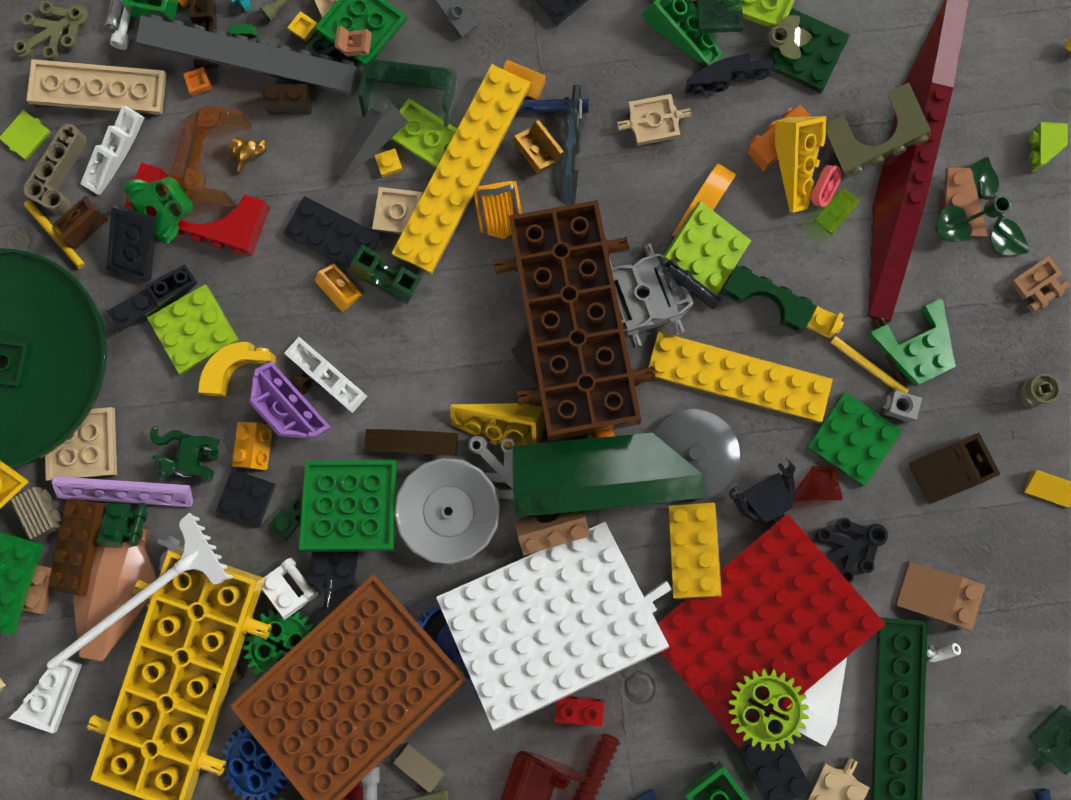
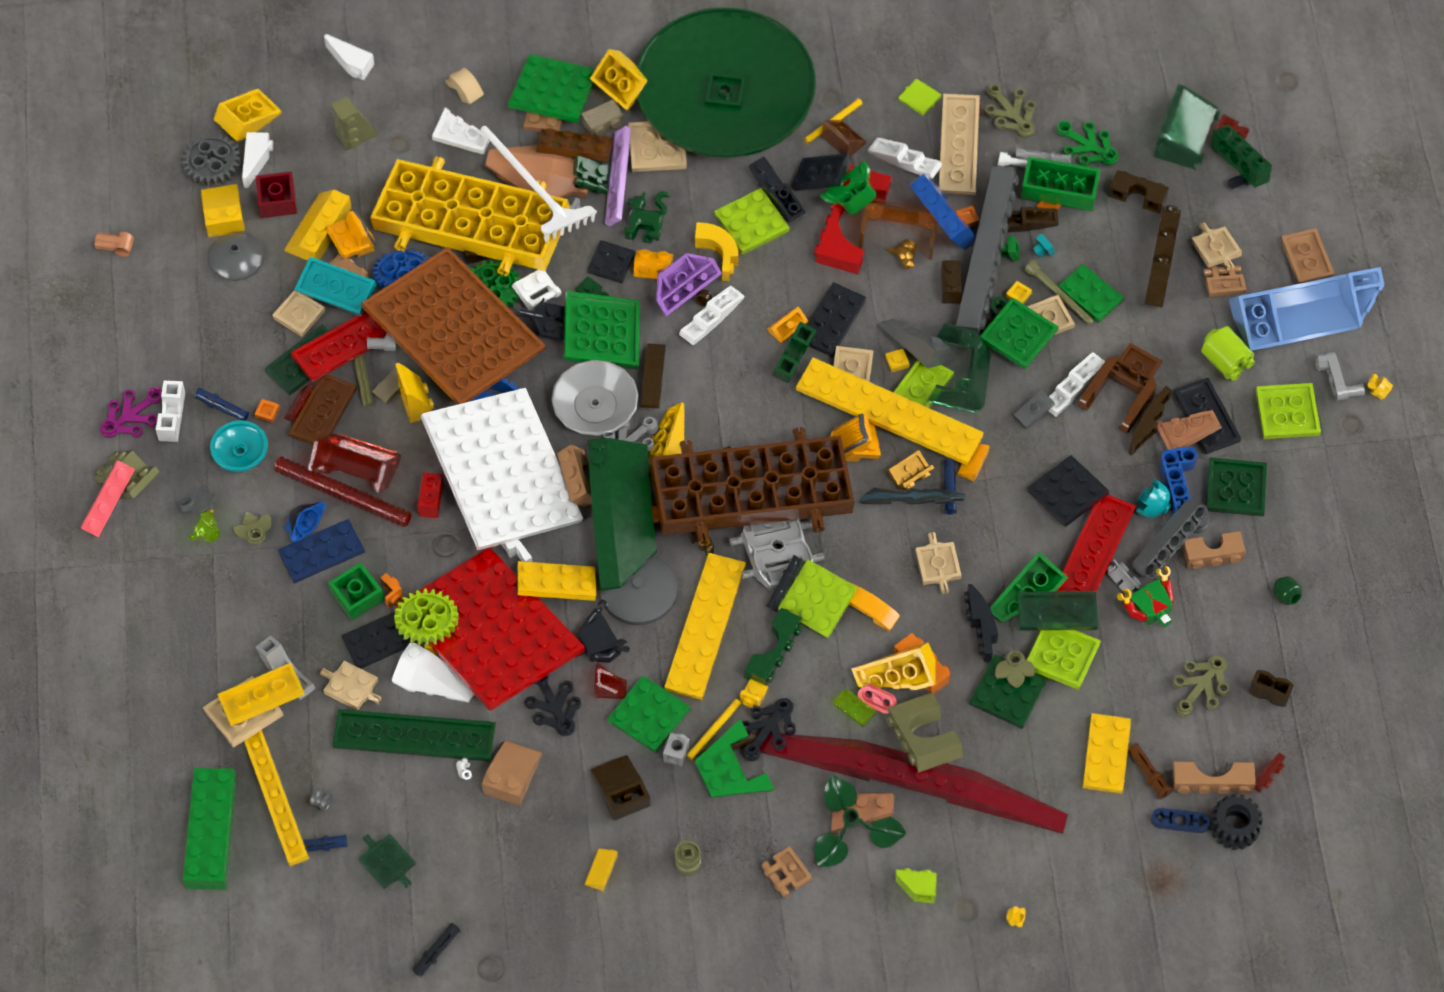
camera: 85 degrees right, 20 degrees down
(60, 167) = (893, 118): dark tan beam -> none
(195, 99) = (935, 202): none -> blue arch
(353, 42) = (996, 321): nougat bracket -> none
(441, 739) = (413, 393): none -> yellow slope
(704, 752) = (393, 587): none -> orange bracket
(866, 302) = (769, 725): none -> black plant

